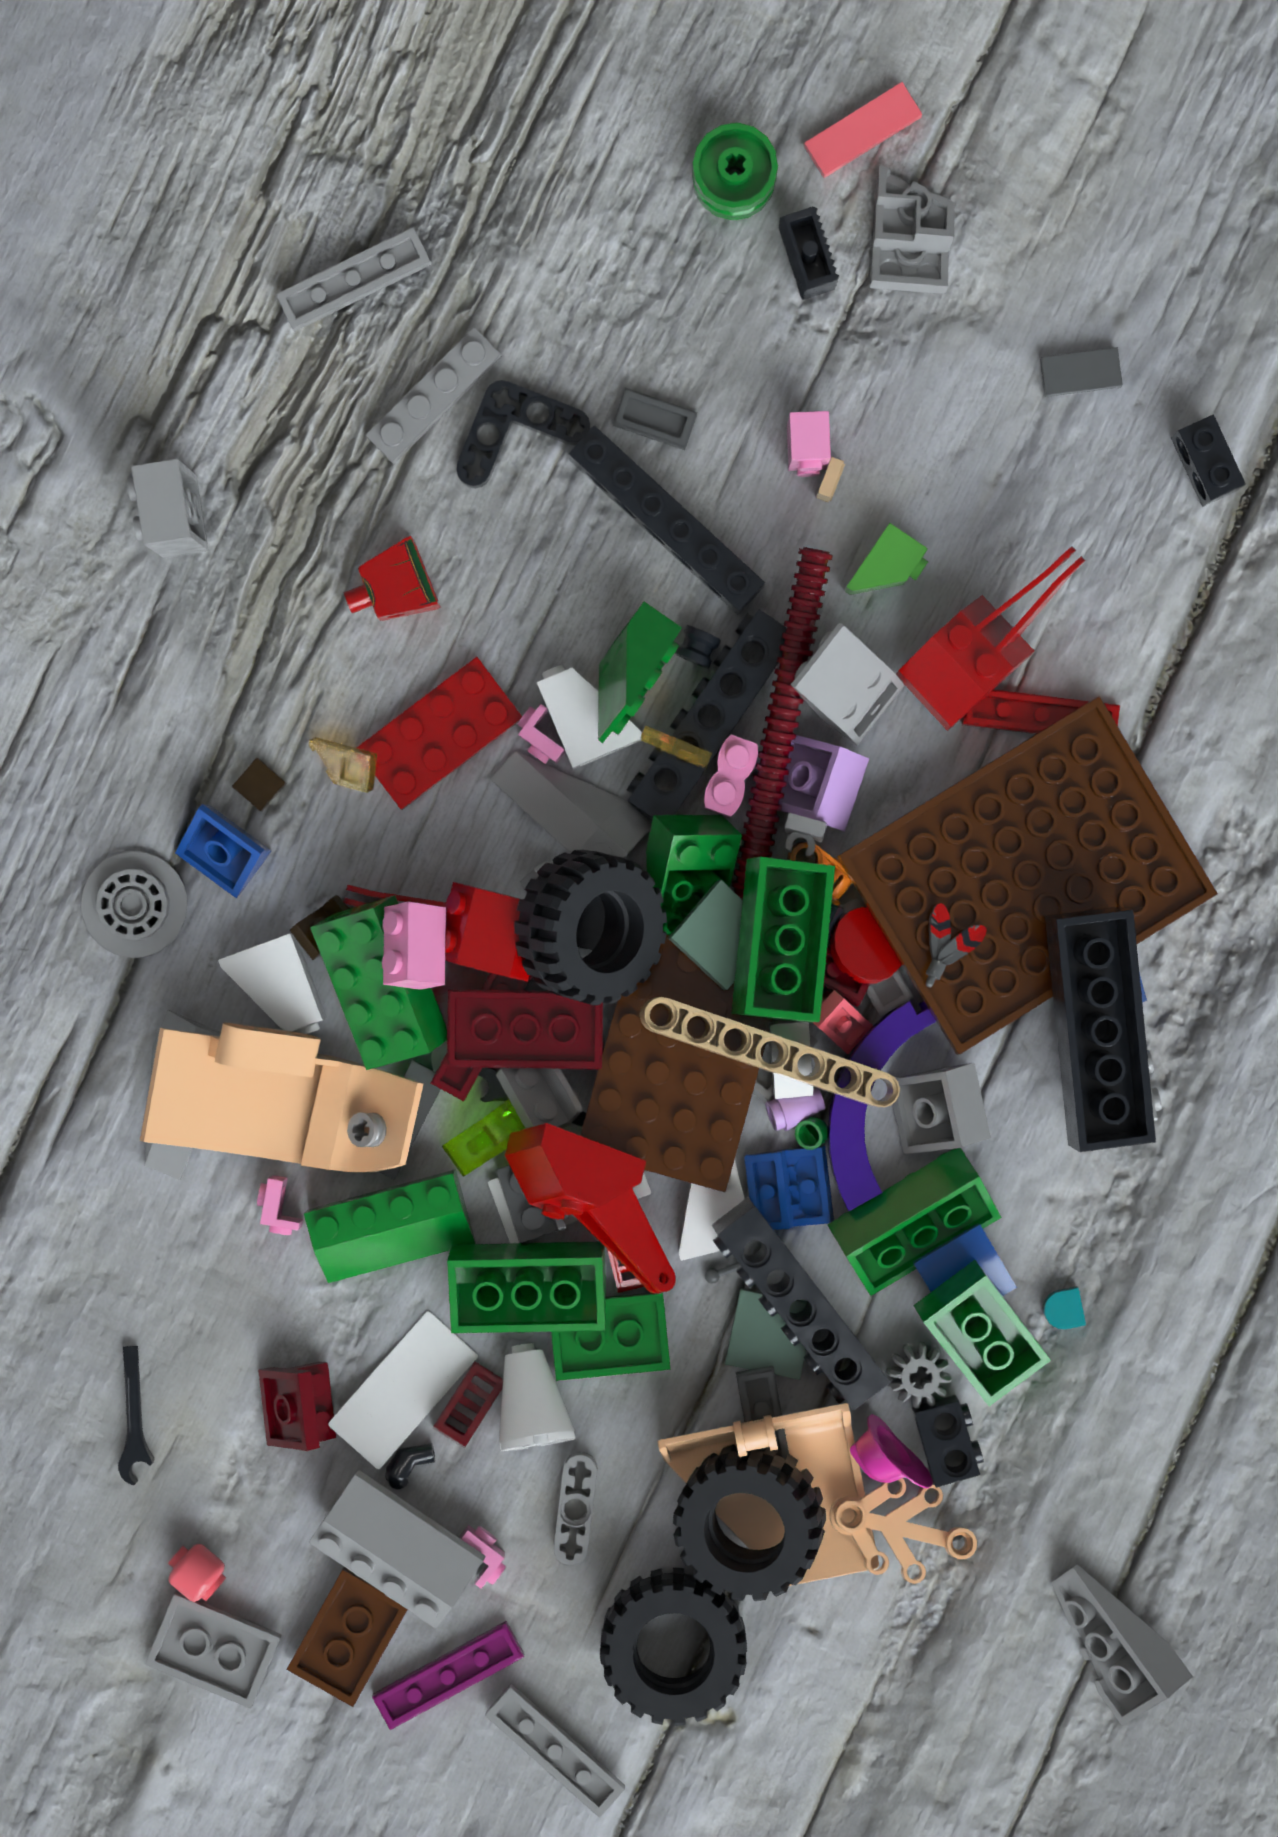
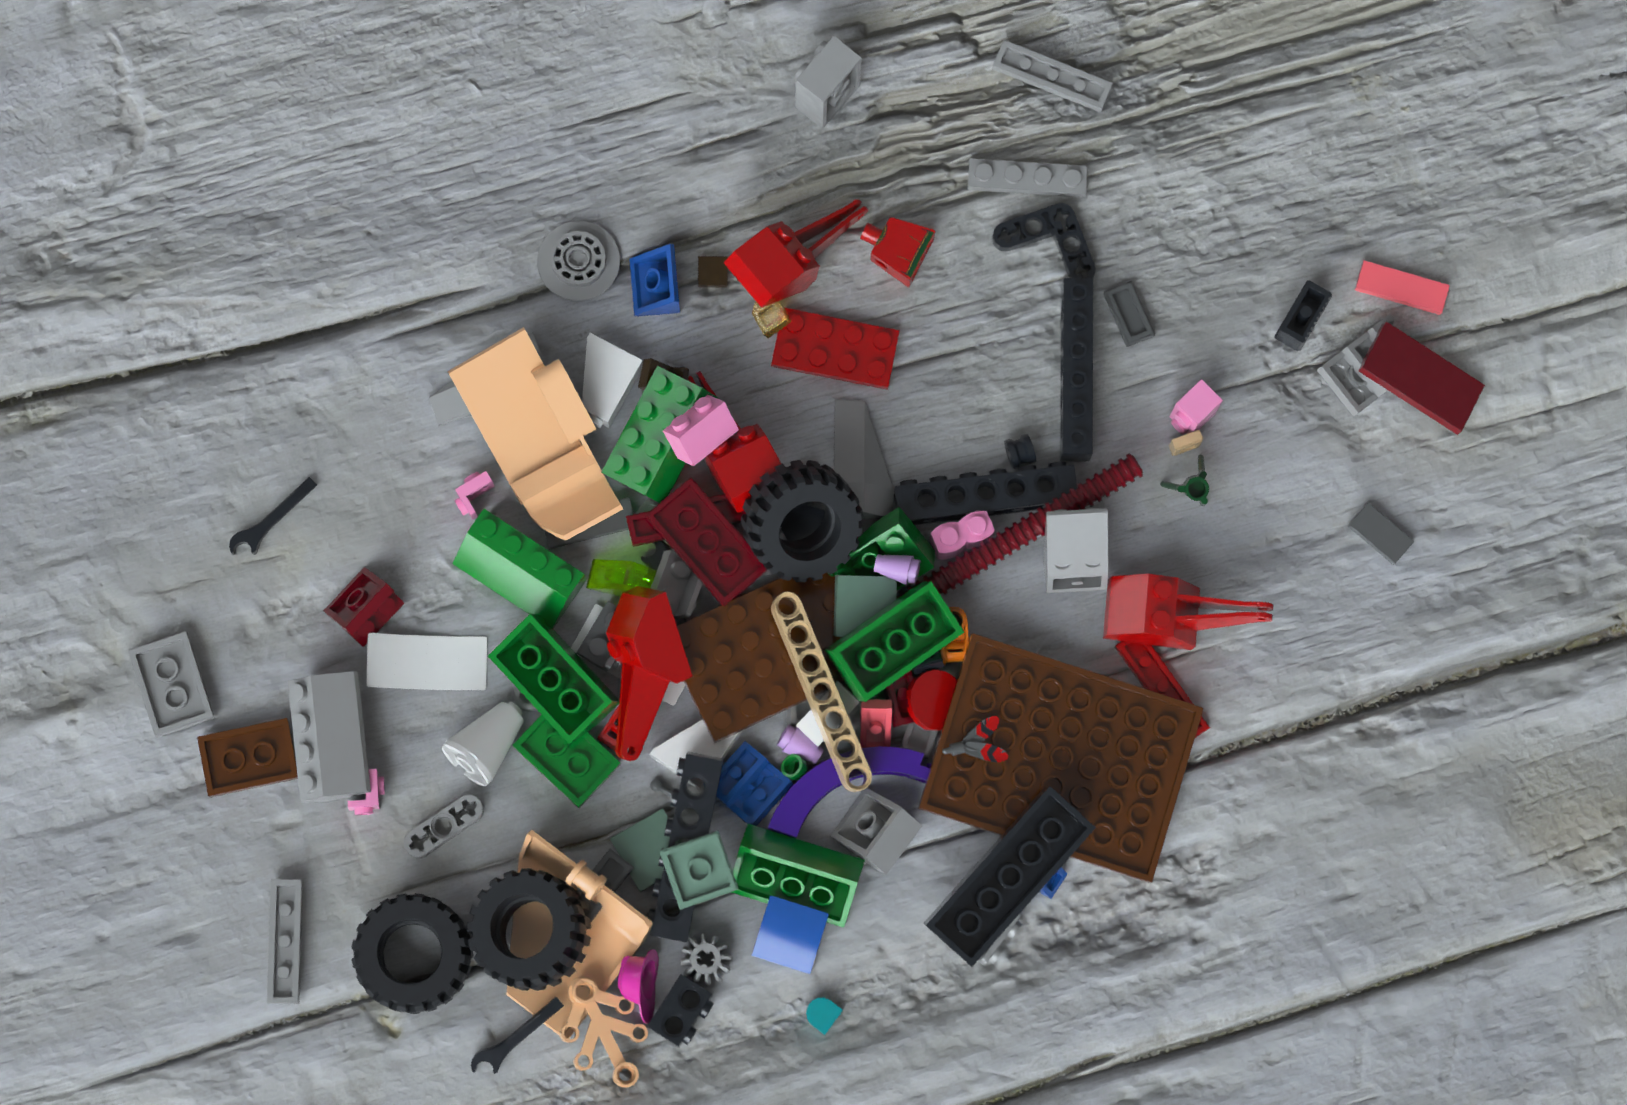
camera: 40 degrees right, 10 degrees down
(196, 1572) = (210, 633): coral head -> none
(310, 720) = (776, 262): none -> red slope
(376, 1132) = (569, 508): light grey bush -> none
(404, 1462) = (384, 699): black arm -> none
(448, 1675) = (275, 839): magenta tile -> none
(450, 1431) = (453, 719): dark red slope -> none
(541, 746) = (881, 411): bright pink bracket -> none
(575, 715) = (918, 422): white slope -> none
(633, 667) = (976, 418): green slope -> none
(676, 747) = (951, 485): clear yellow tile -> none
(715, 872) = (898, 567): none -> lavender cone
(737, 148) = (1312, 217): green wheel -> none
(804, 829) = (970, 602): light grey tile -> none
(822, 781) = (1006, 590): lavender slope -> none
(834, 1642) = (498, 1052): none -> black piece
(835, 1315) = (699, 869): none -> sand green tile
(885, 512) = (1194, 486): none -> dark green plant
(889, 563) = (1168, 518): bright green slope -> none
(970, 194) = (1421, 378): none -> dark red tile
(981, 1333) = (765, 970): green brick -> none
(1208, 460) = (1397, 650): black brick -> none

